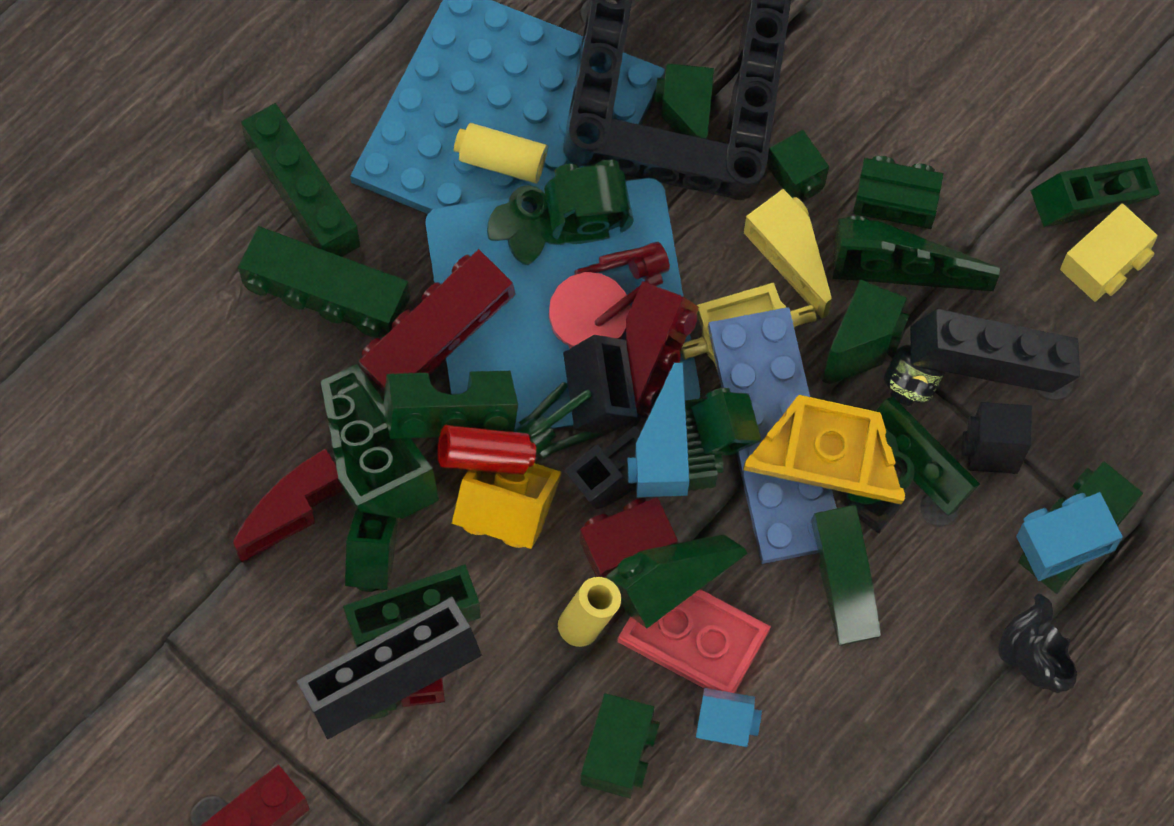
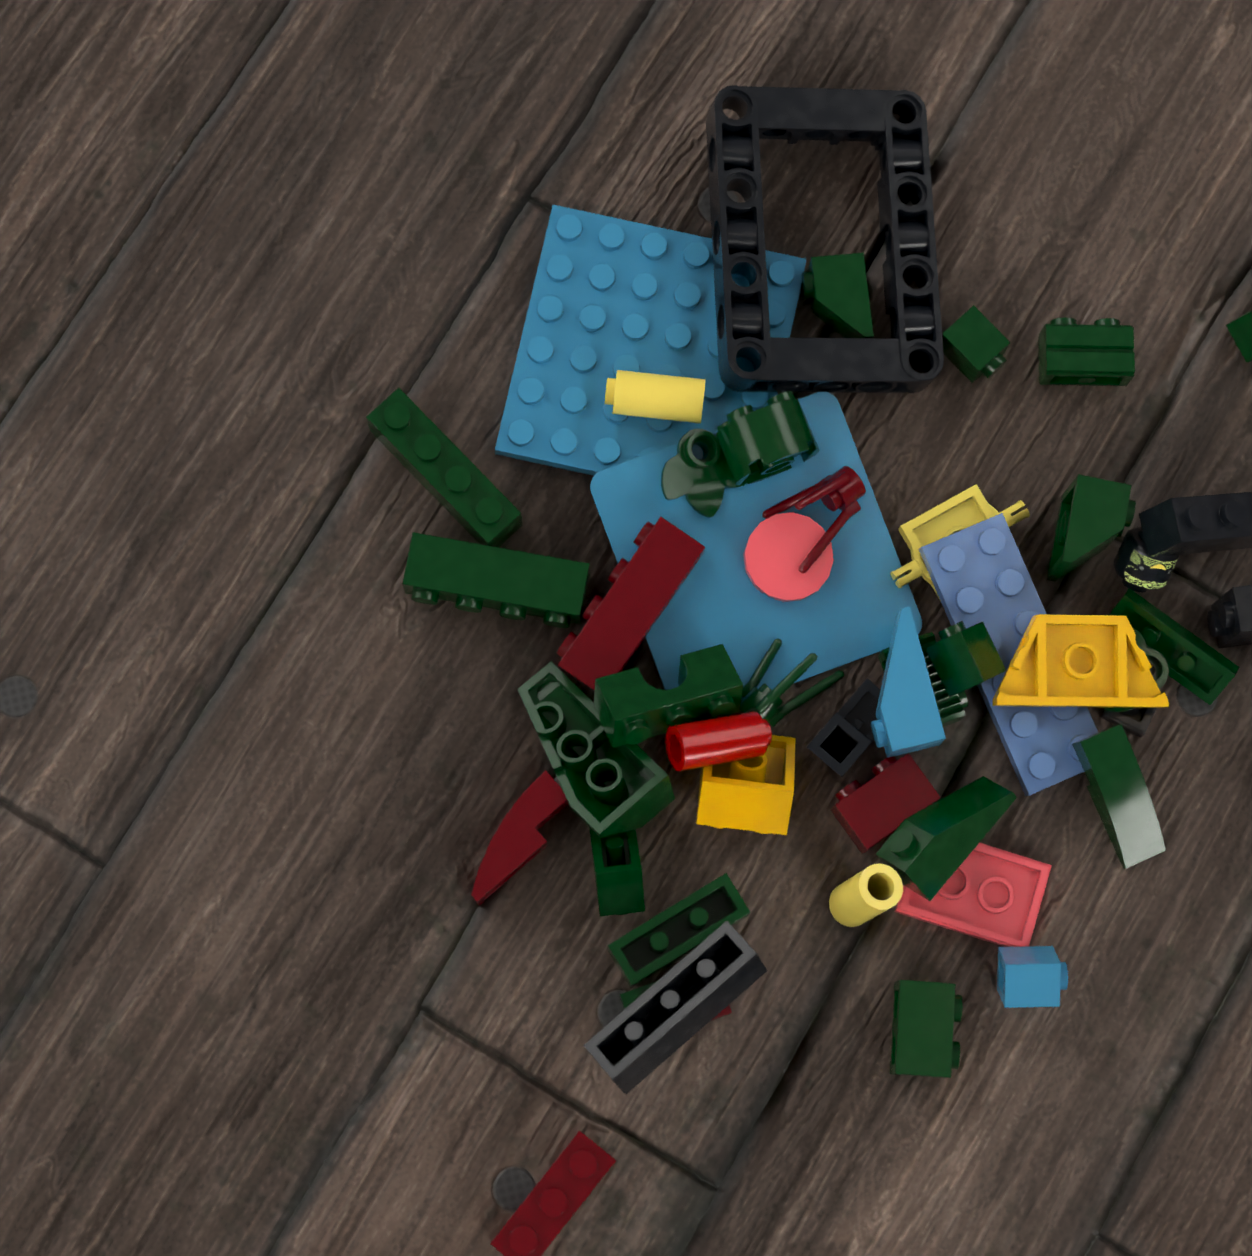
camera: 15 degrees left, 10 degrees up
(604, 369) = (821, 626): black brick -> none
(655, 337) = (866, 575): dark red slope -> none
(787, 240) = (983, 434): light yellow slope -> none
(890, 255) = (1089, 426): dark green wedge -> none

